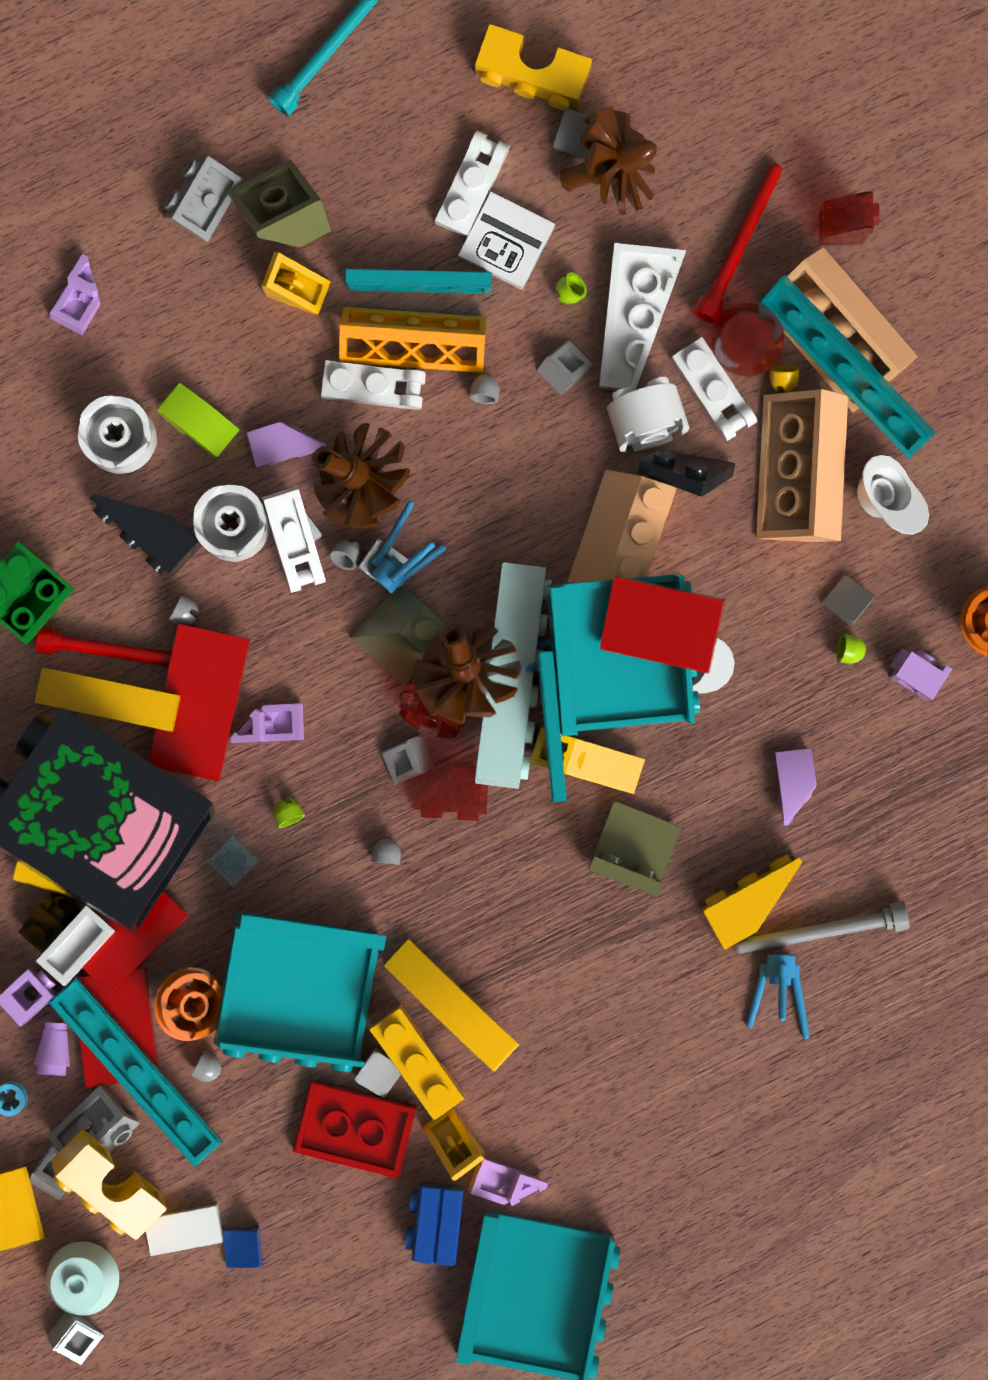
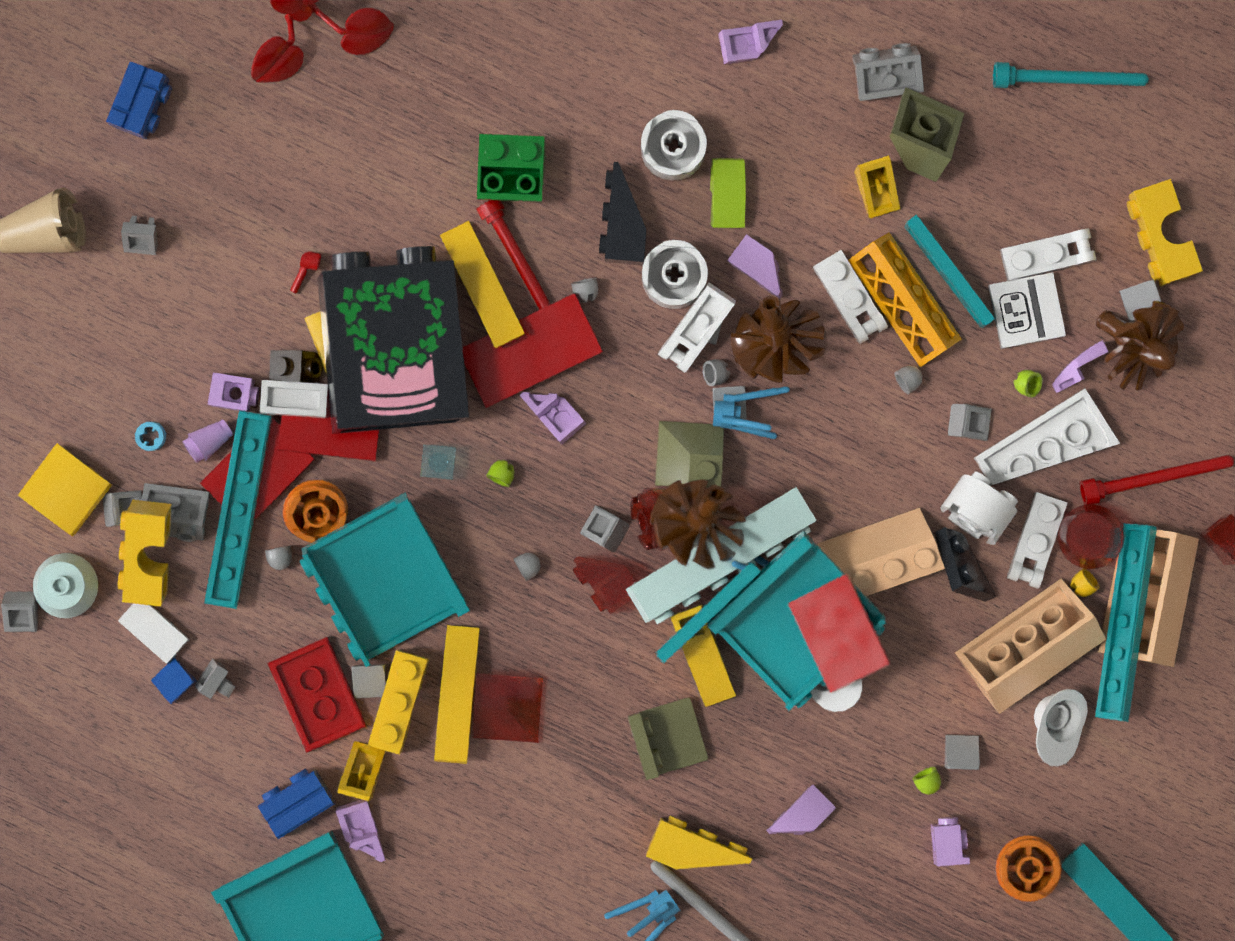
camera: 50 degrees right, 0 degrees up
(270, 1210) = (214, 679): none -> light grey tile
(497, 969) = (507, 707): none -> clear red slope
(591, 243) = (1071, 373): none -> lavender slope

